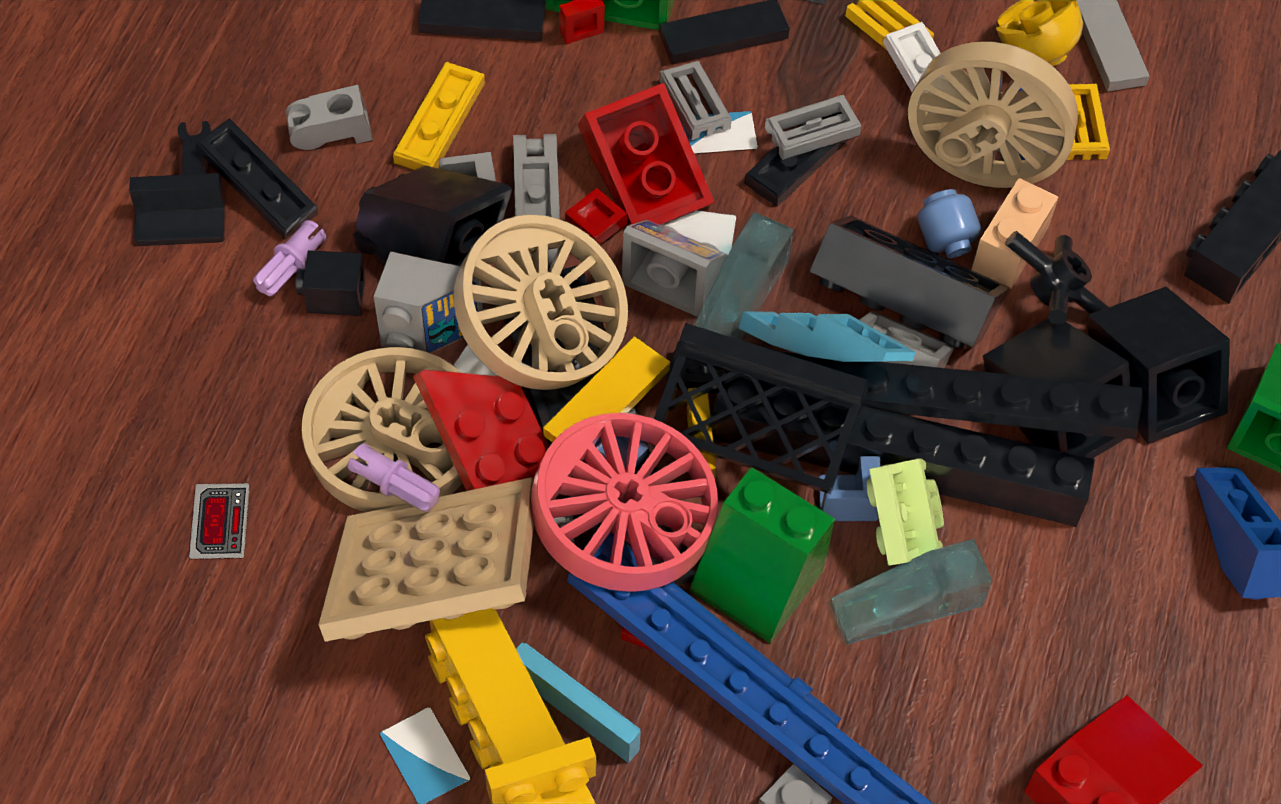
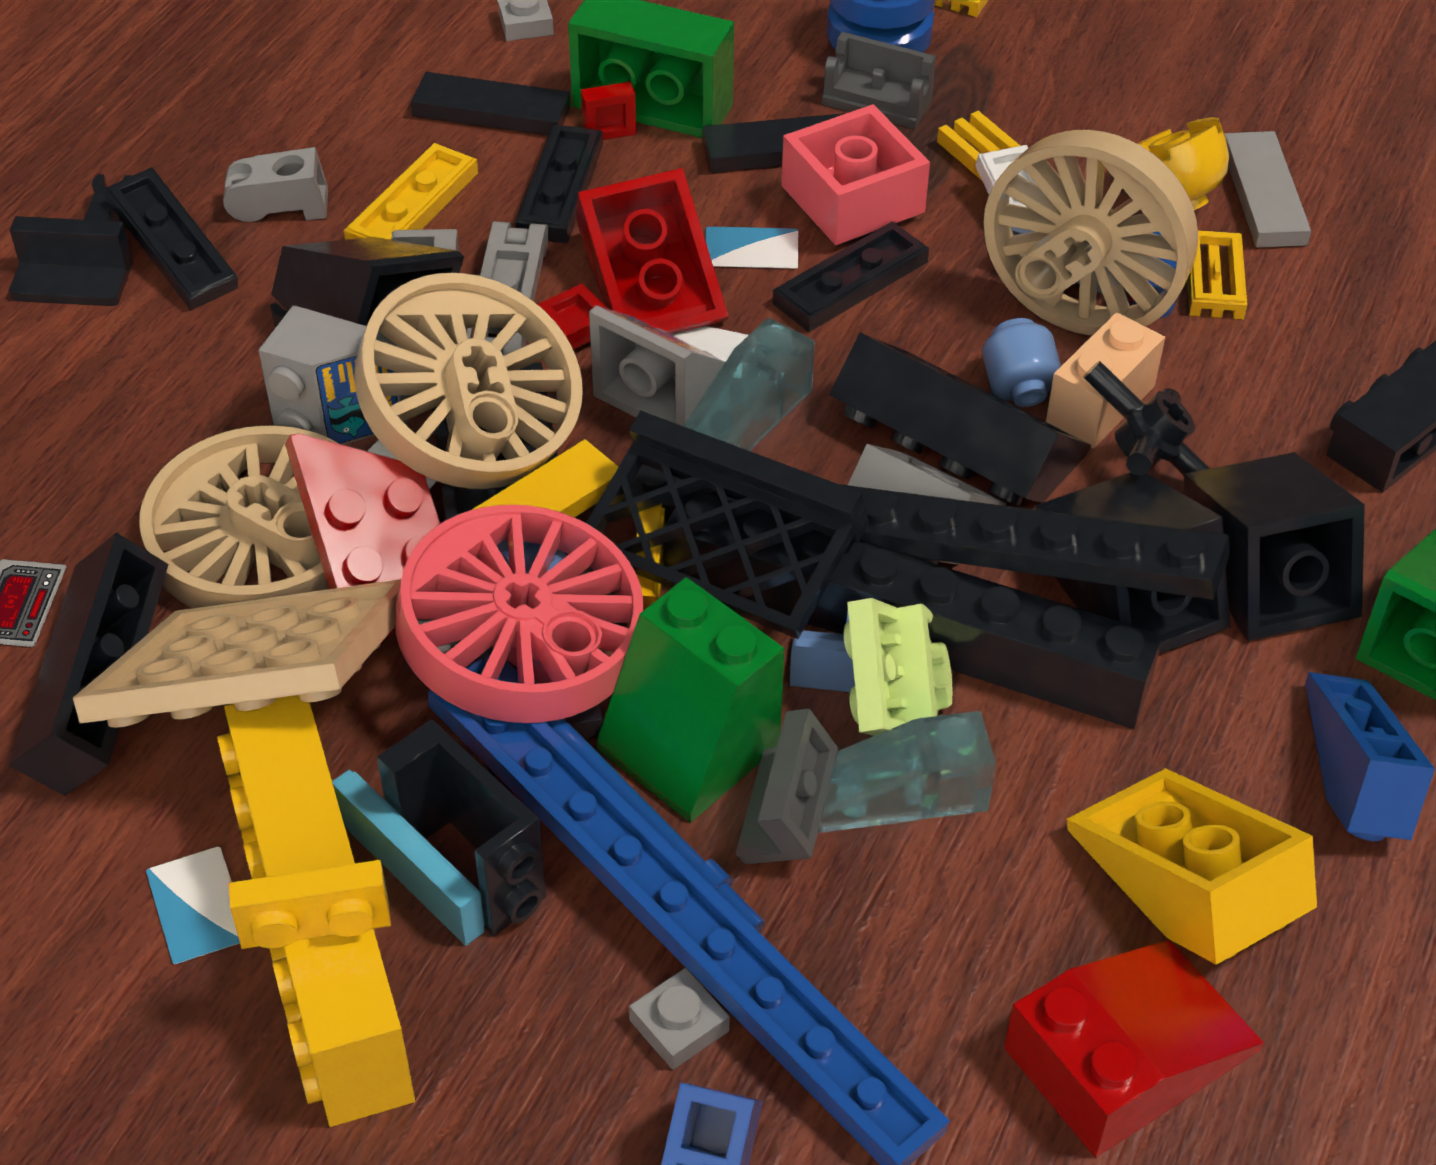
camera: 10 degrees right, 10 degrees down
(288, 258) = (185, 325): lavender axle -> none
(297, 571) = (99, 621): none -> black brick
(332, 282) = (226, 353): black brick -> none
(394, 478) = (236, 562): lavender axle -> none
(554, 87) = (559, 176): none -> black tile
(597, 643) = (440, 783): none -> black panel
(704, 123) = (735, 230): light grey tile -> none
(792, 61) = (854, 174): none -> coral brick
(816, 132) = (868, 244): light grey tile -> none
(824, 336) = (835, 455): medium azure slope -> none
(841, 618) = (789, 793): none -> dark grey panel
(1141, 633) = (1200, 862): none -> yellow slope

